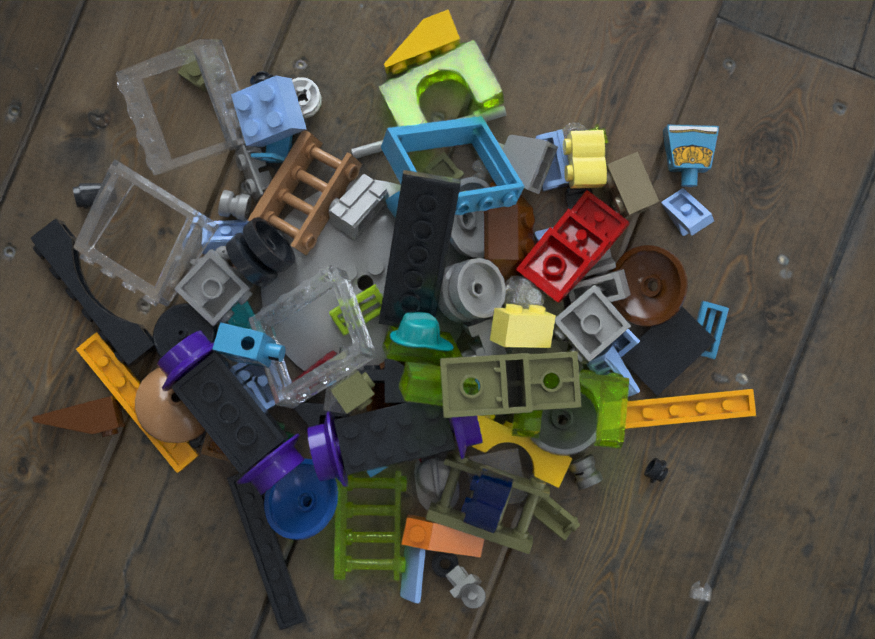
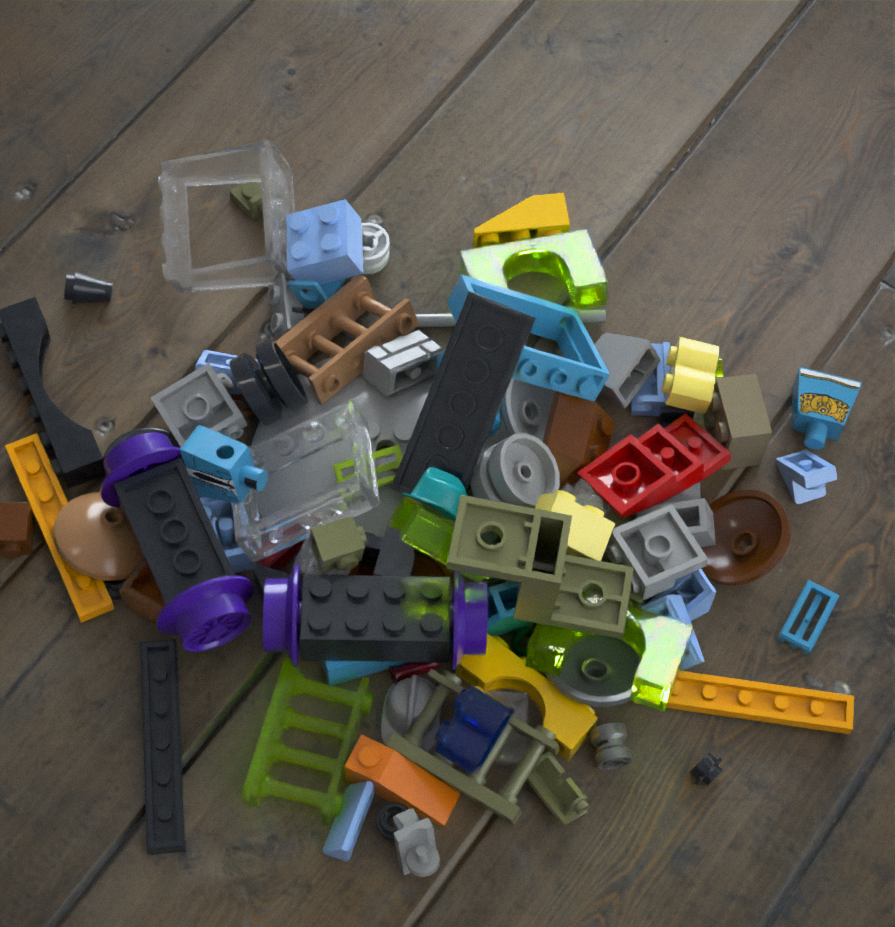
camera: 10 degrees right, 25 degrees down
(185, 253) = (119, 281): clear windscreen -> none
(237, 206) = (248, 336): light grey wheel -> none
(288, 503) = (228, 683): blue dish -> none
(668, 350) = (751, 623): black tile -> none

